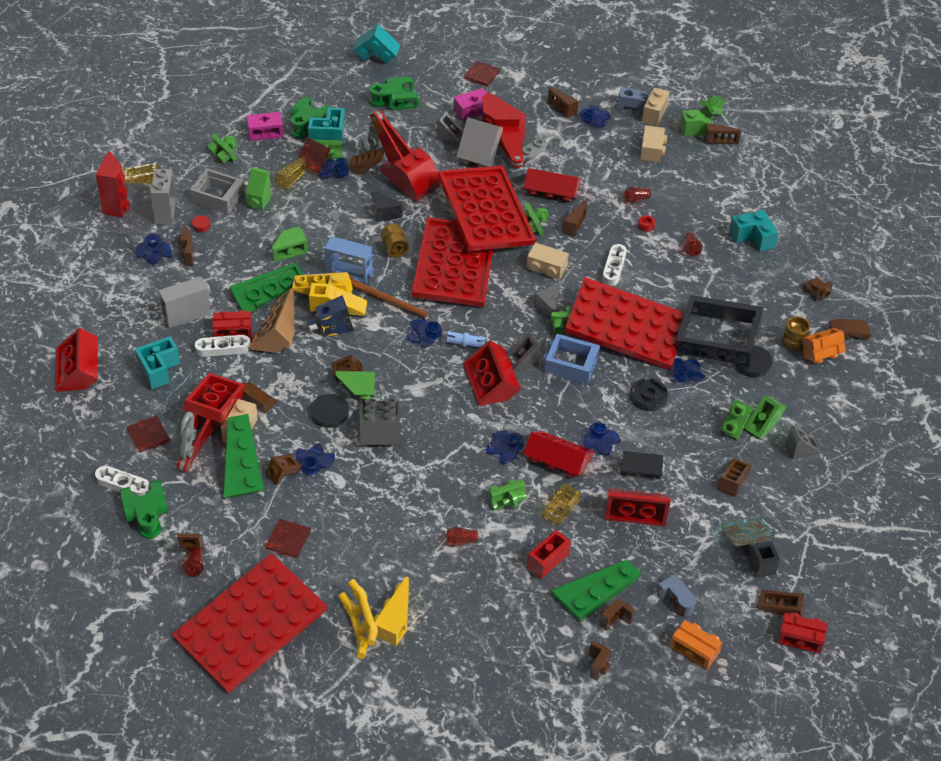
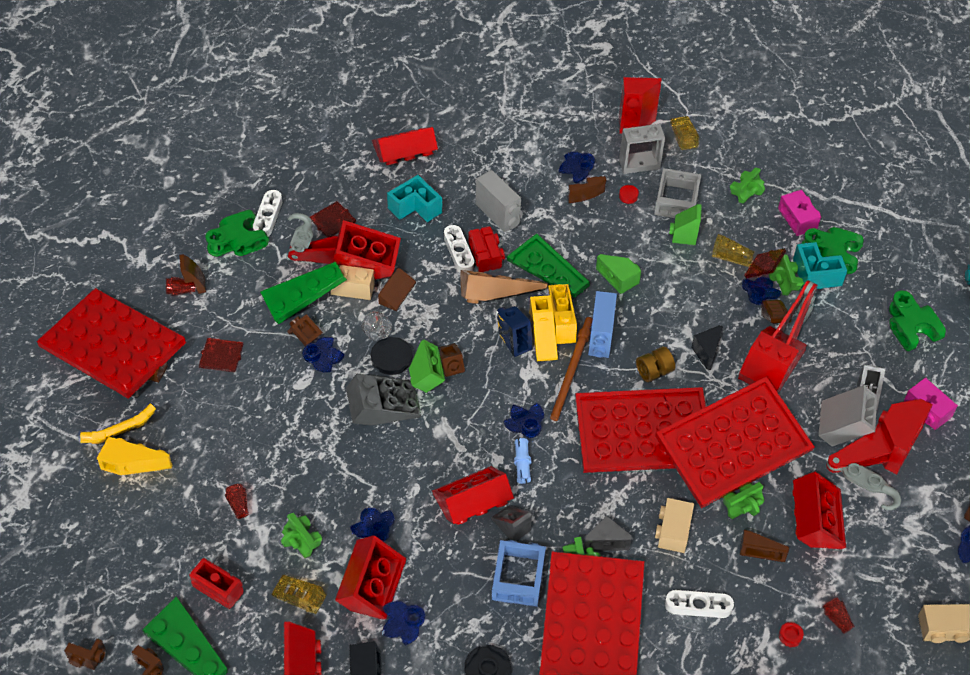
camera: 80 degrees right, 5 degrees up
(297, 412) = (376, 326): none -> clear head

